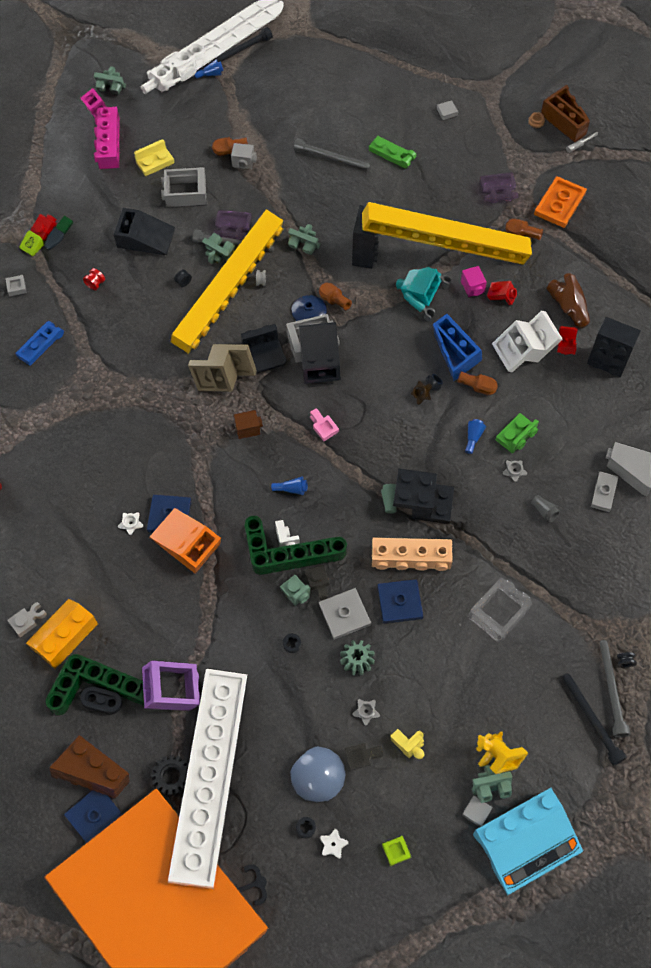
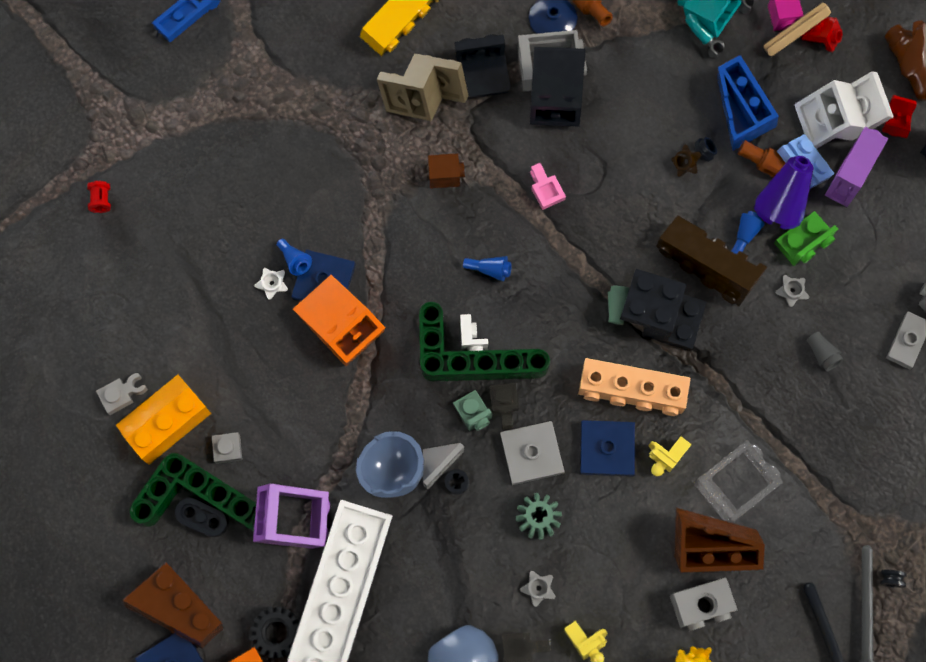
camera: 10 degrees right, 10 degrees up
(113, 646) = (227, 448): none -> light grey plate
(147, 502) = (296, 260): none -> blue cone
(240, 636) = (390, 465): none -> sand blue cylinder
(276, 629) = (438, 460): none -> light grey slope
(443, 601) = (666, 459): none -> light yellow piece
(452, 457) = (710, 260): none -> dark brown wedge
(484, 292) = (797, 29): none -> tan axle
(491, 655) = (715, 544): none -> reddish brown wedge
(497, 401) = (786, 194): none -> dark purple cone
(499, 692) = (686, 604): none -> light grey brick
(507, 380) = (804, 147): none -> light blue plate
(543, 377) = (856, 166): none -> medium lavender window

